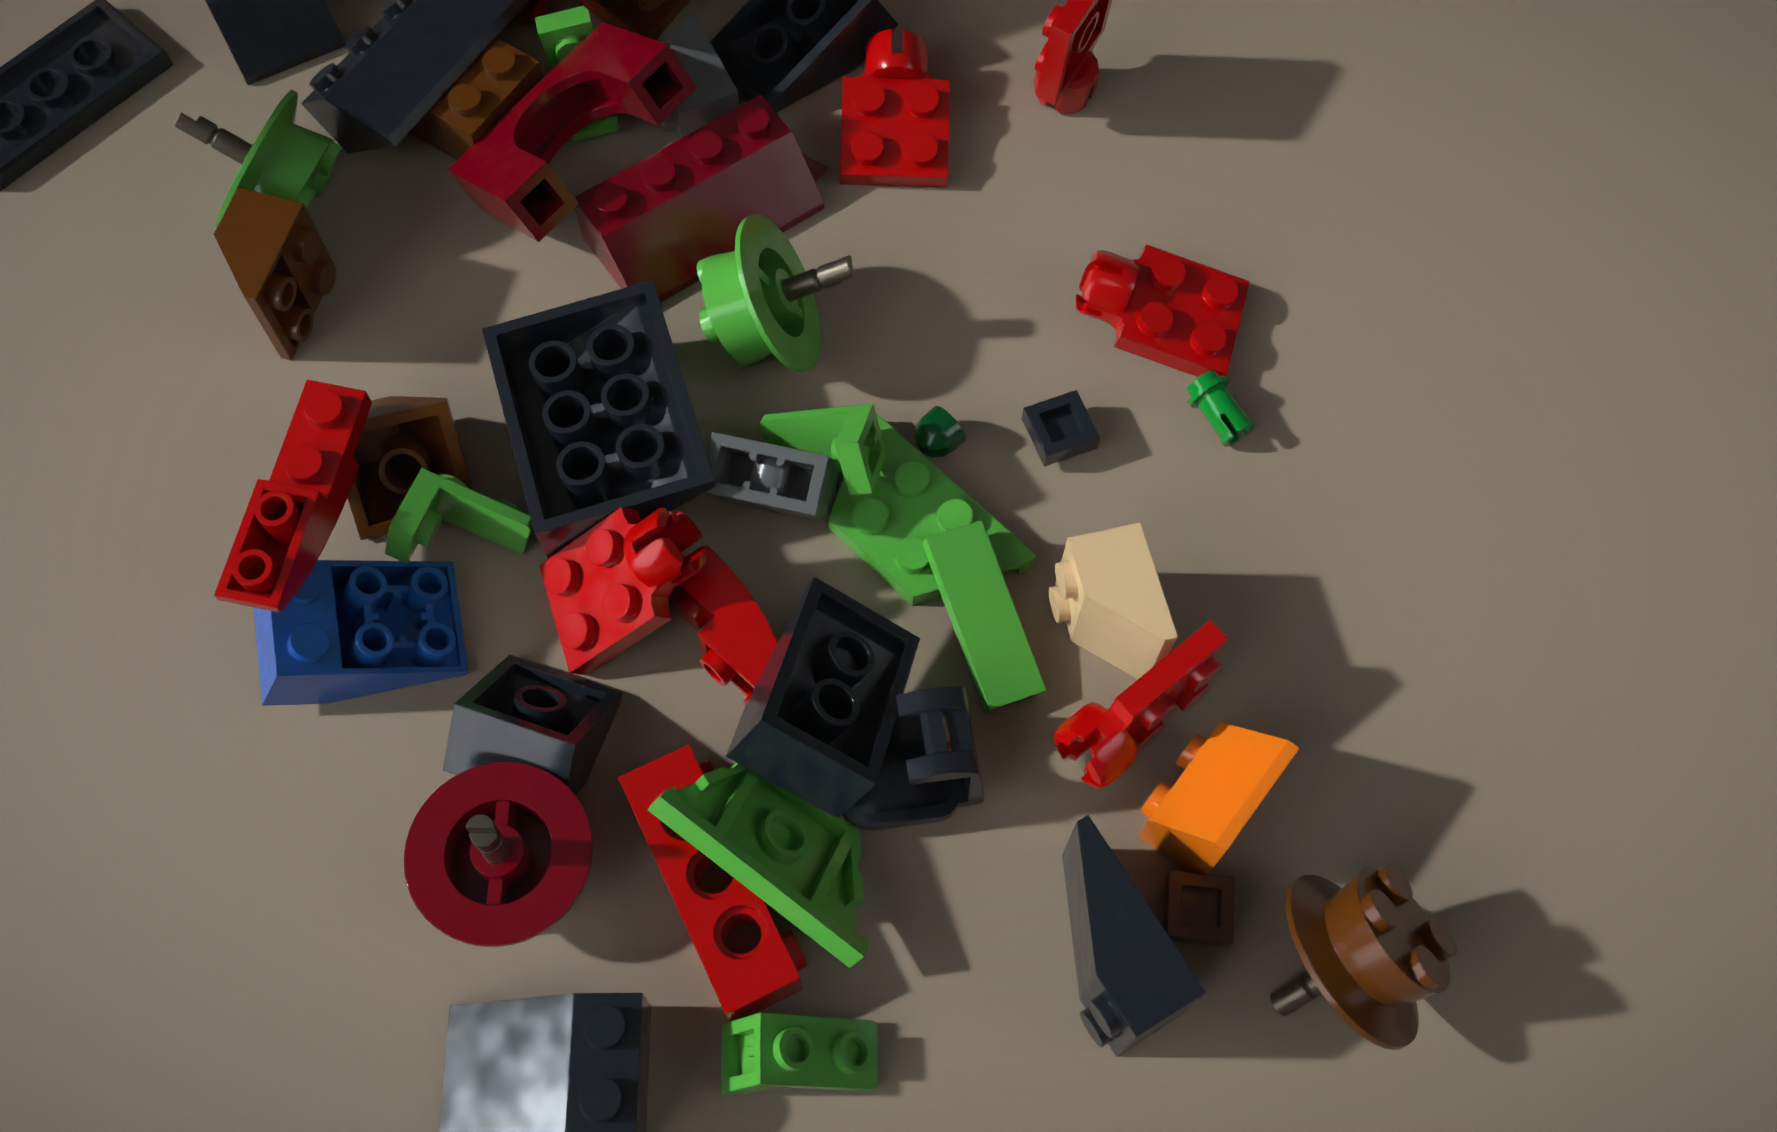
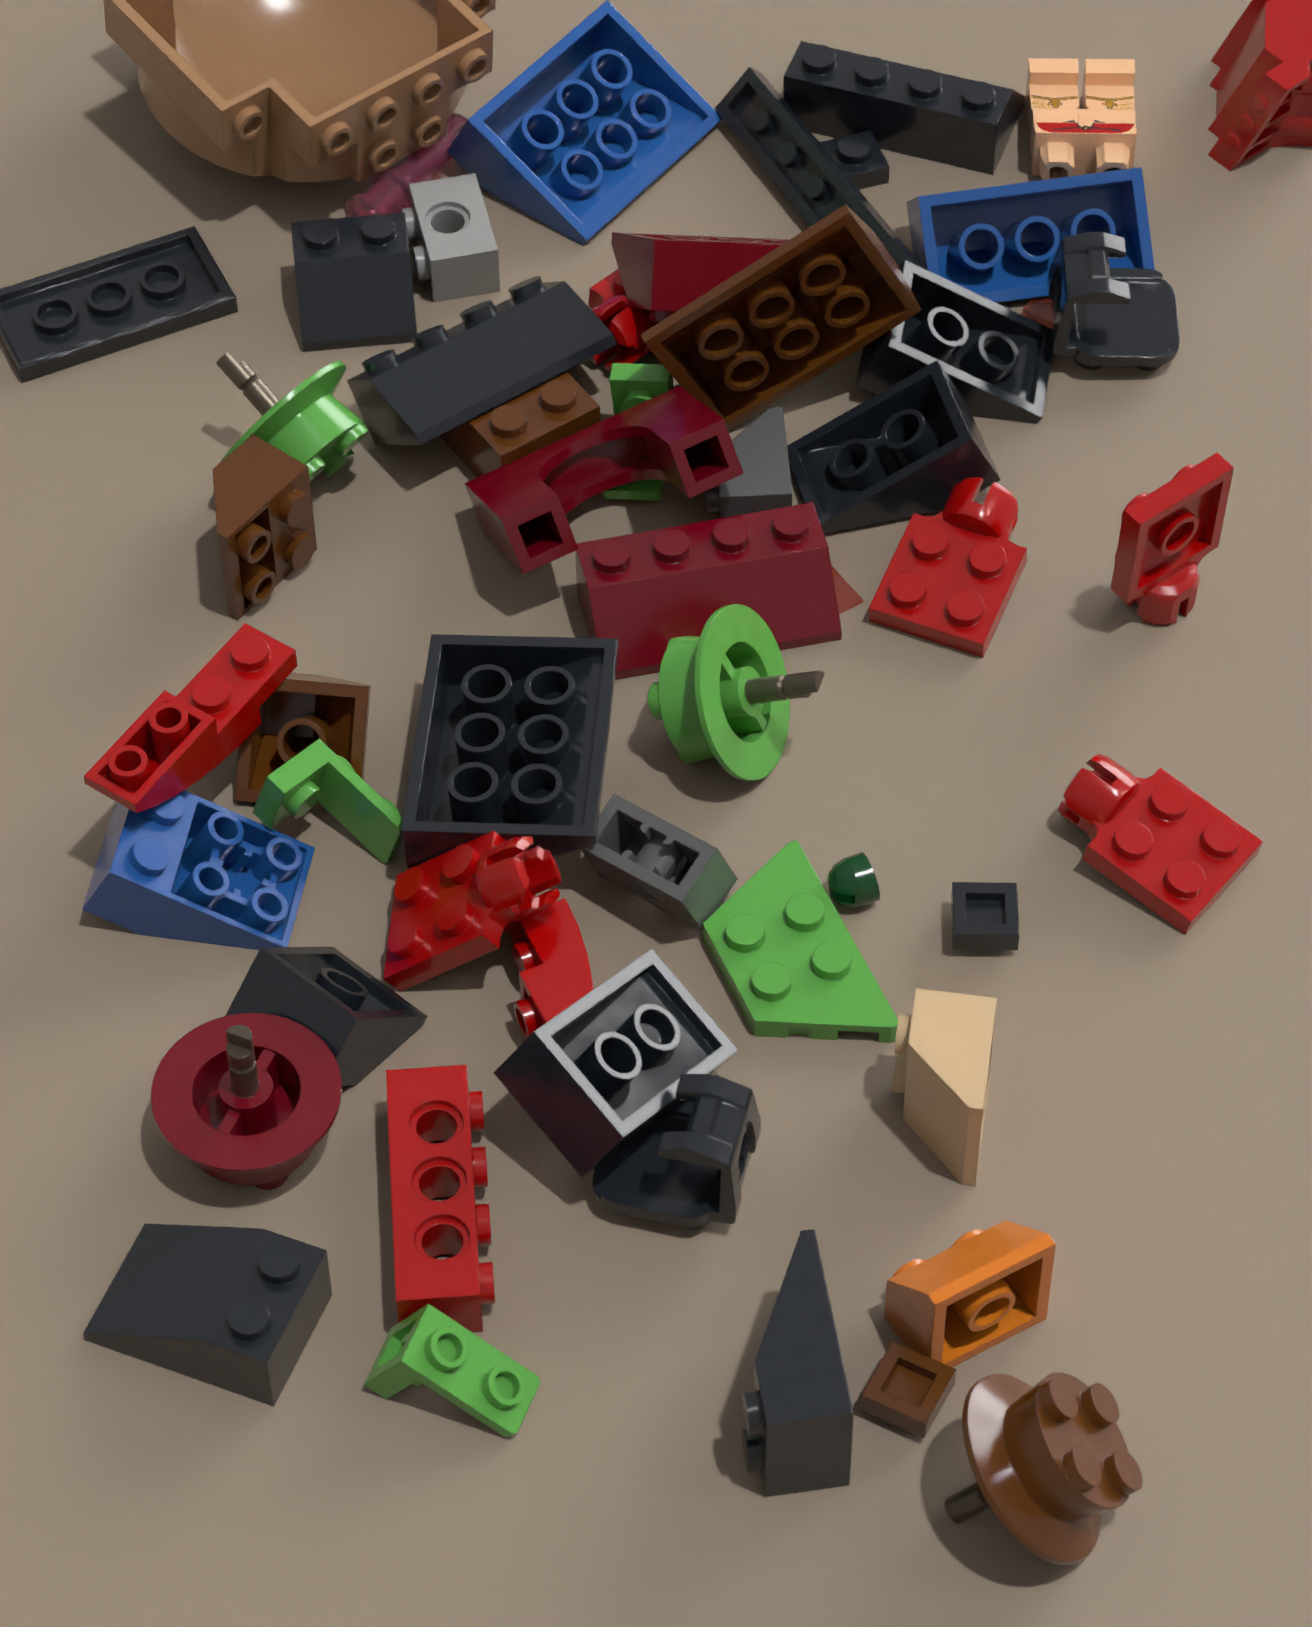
camera: 25 degrees right, 15 degrees down
(778, 849) = (510, 1176): bright green wing -> none
(843, 433) = (750, 845): bright green bracket -> none
(983, 616) = (816, 1059): bright green tile -> none
(1138, 712) = (936, 1178): red plate -> none
(1219, 406) = (1164, 937): green pin -> none

